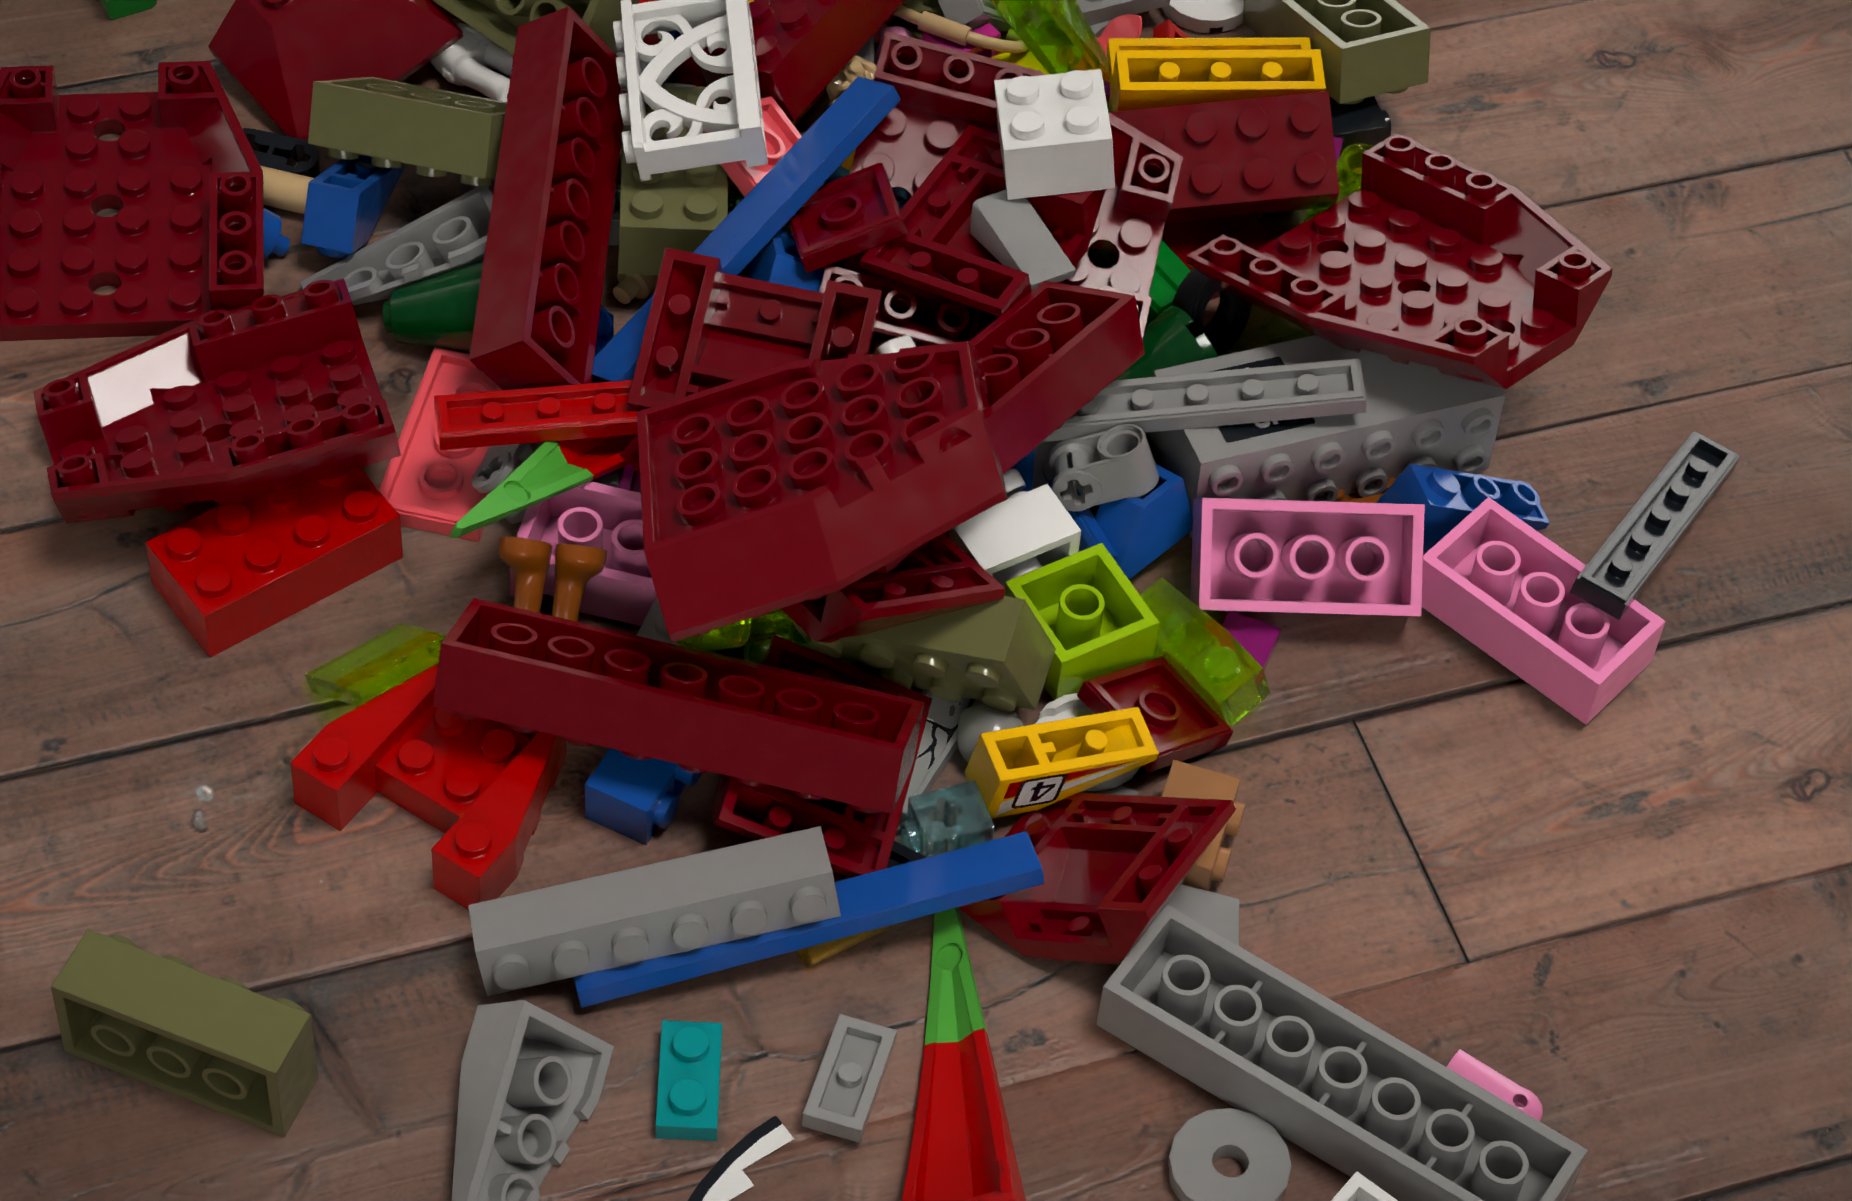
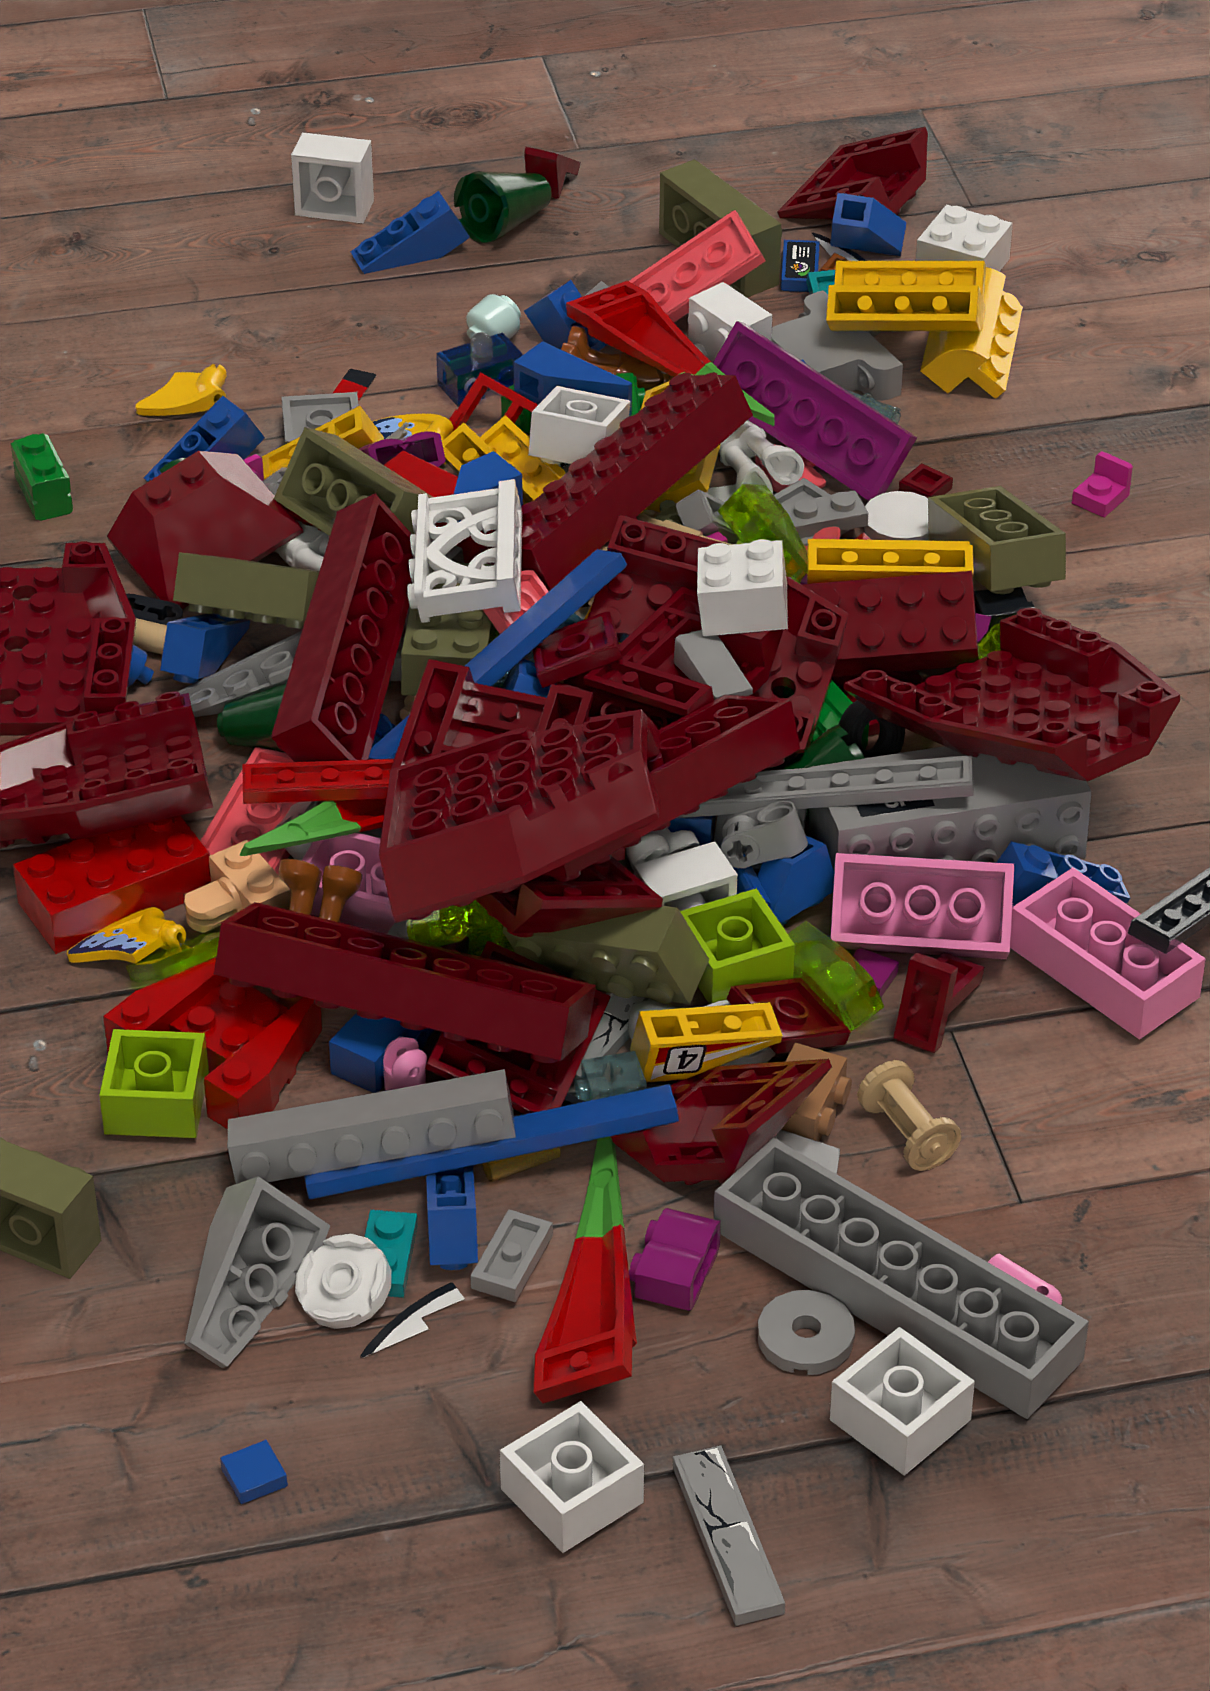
camera: 10 degrees right, 10 degrees down
(305, 636) = (130, 938): none -> yellow arm
(365, 854) = (154, 1083): none -> lime brick
(440, 568) = (234, 886): none -> light nougat brick
(641, 1129) = (343, 1281): none -> white tile
(685, 822) = (404, 1064): none -> bright pink piece
(769, 1029) = (452, 1218): none -> blue slope
(1057, 1073) = (675, 1258): none -> magenta brick
(1296, 821) = (928, 1139): none -> tan hose
(1333, 683) = (930, 995): none -> dark red bracket

